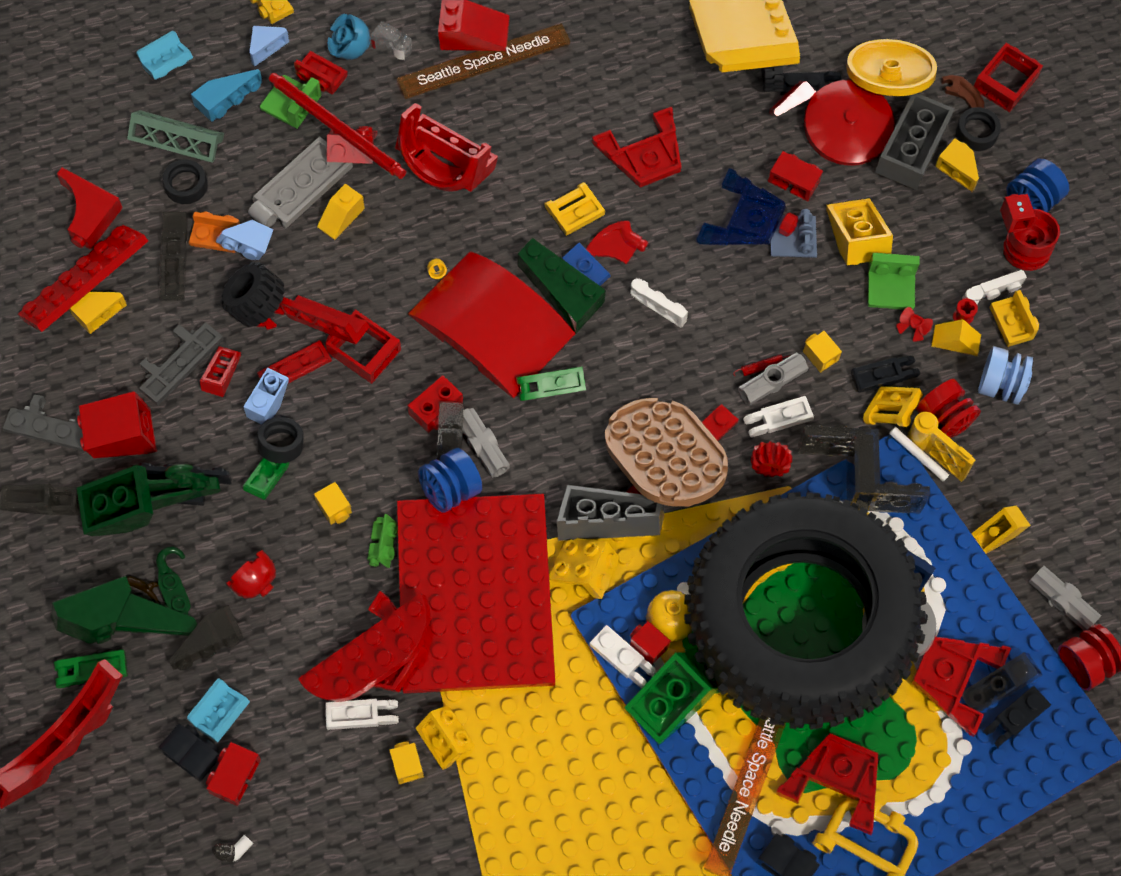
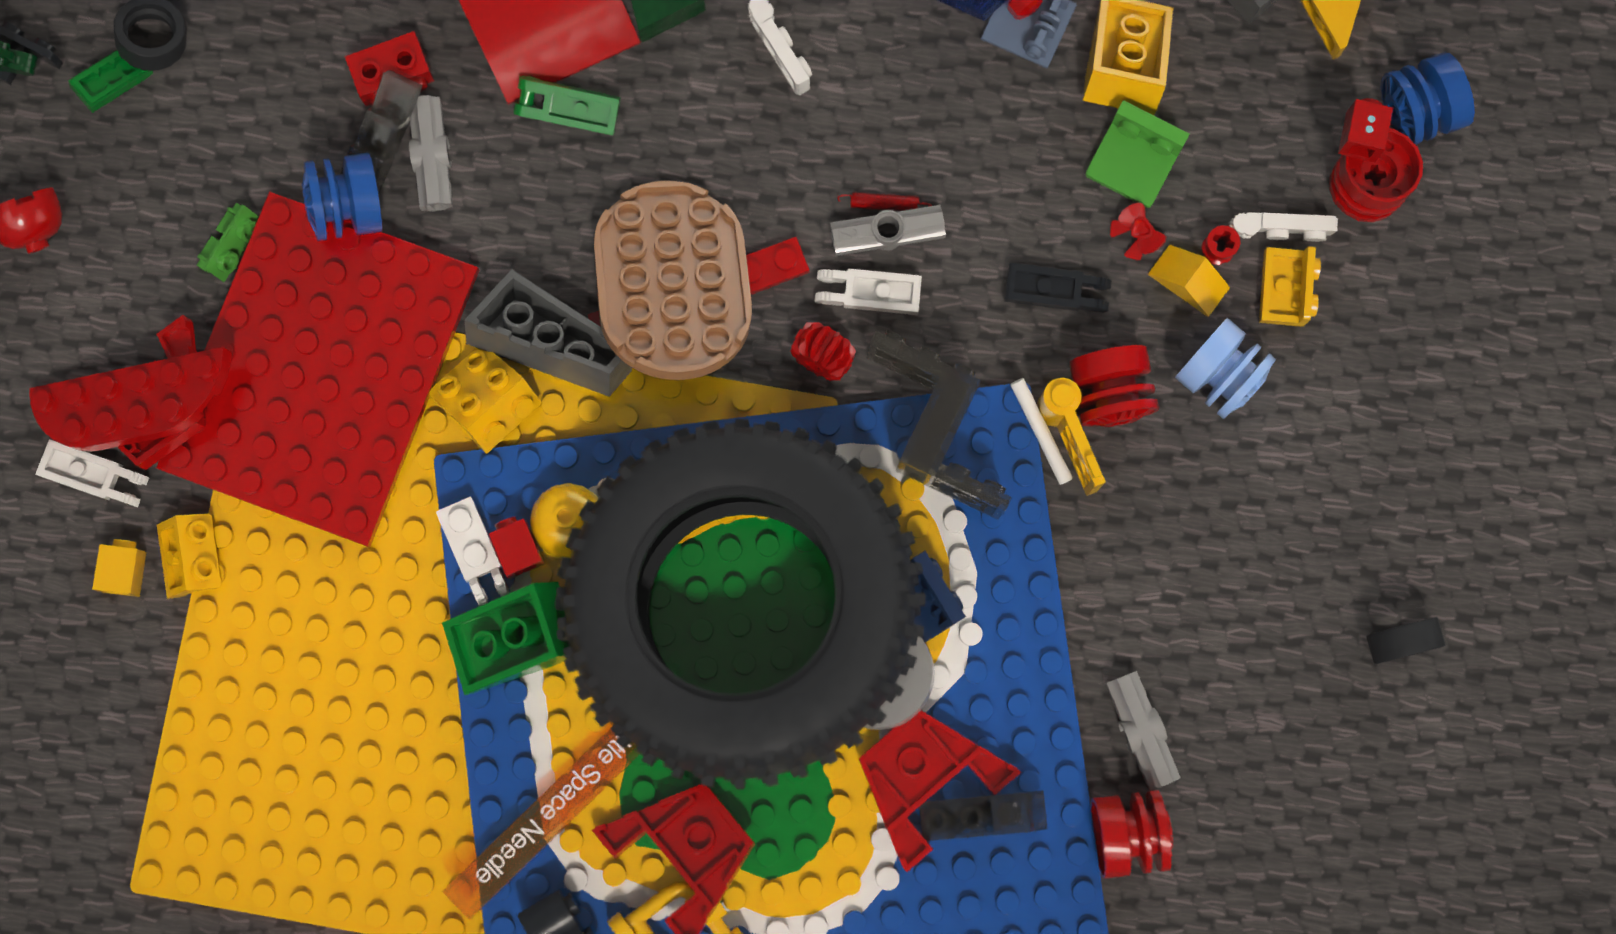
camera: 25 degrees right, 15 degrees up
(333, 504) = (182, 158): yellow brick -> none
(821, 351) = (979, 217): yellow brick -> none
(893, 399) = (1043, 335): yellow plate -> none
(1001, 528) = (1103, 591): yellow slope -> none
(1019, 715) = (985, 869): black hinge -> none

